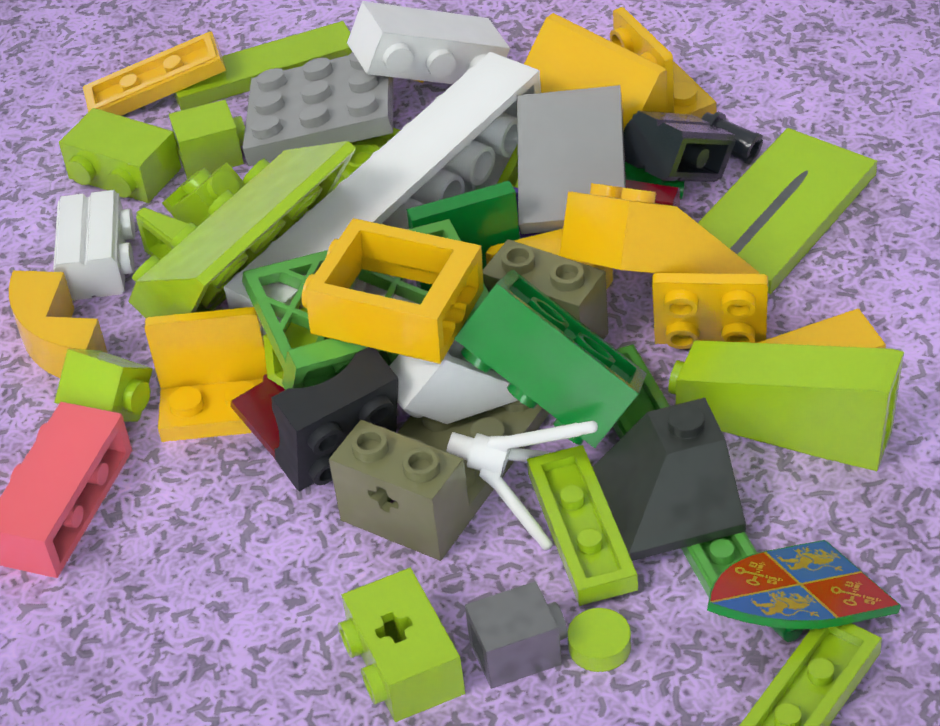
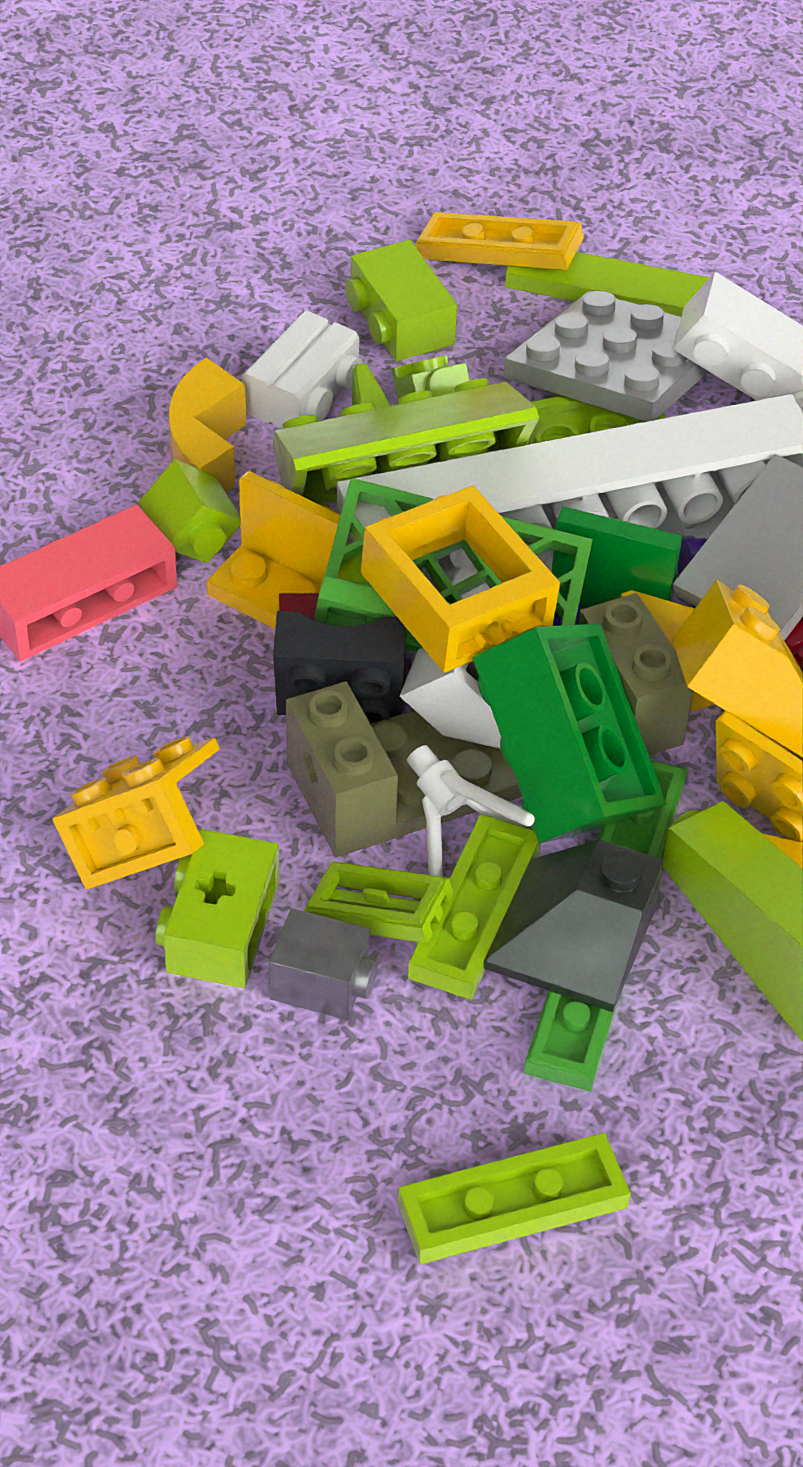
camera: 30 degrees right, 5 degrees up
(208, 137) = (489, 326): lime brick -> none
(279, 616) = (133, 814): none -> yellow bracket
(514, 570) = (374, 908): none -> lime tile
(599, 639) = (395, 1020): lime tile -> none
(798, 590) = (598, 1097): shield -> none

